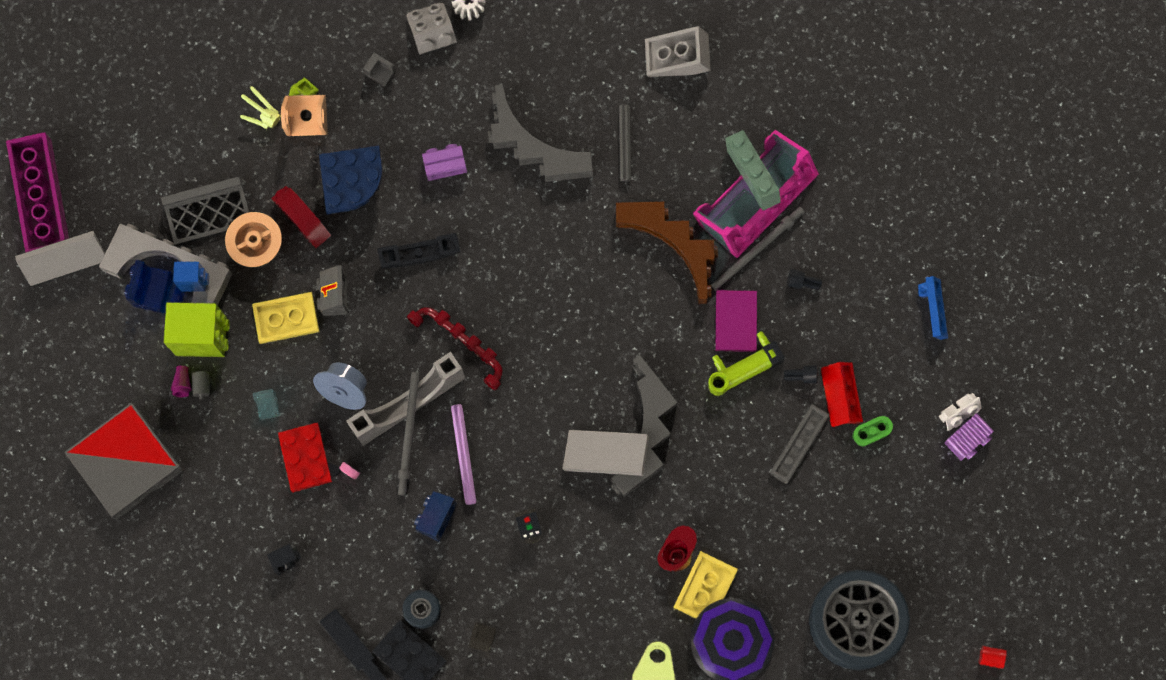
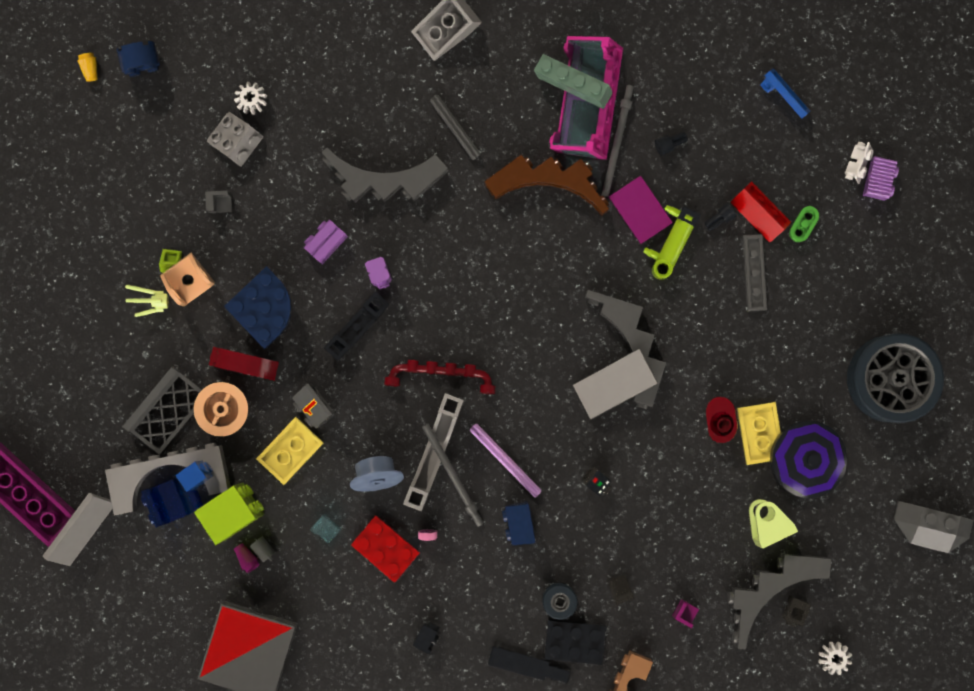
camera: 40 degrees left, 10 degrees up
(470, 217) = (378, 272): none -> medium lavender brick

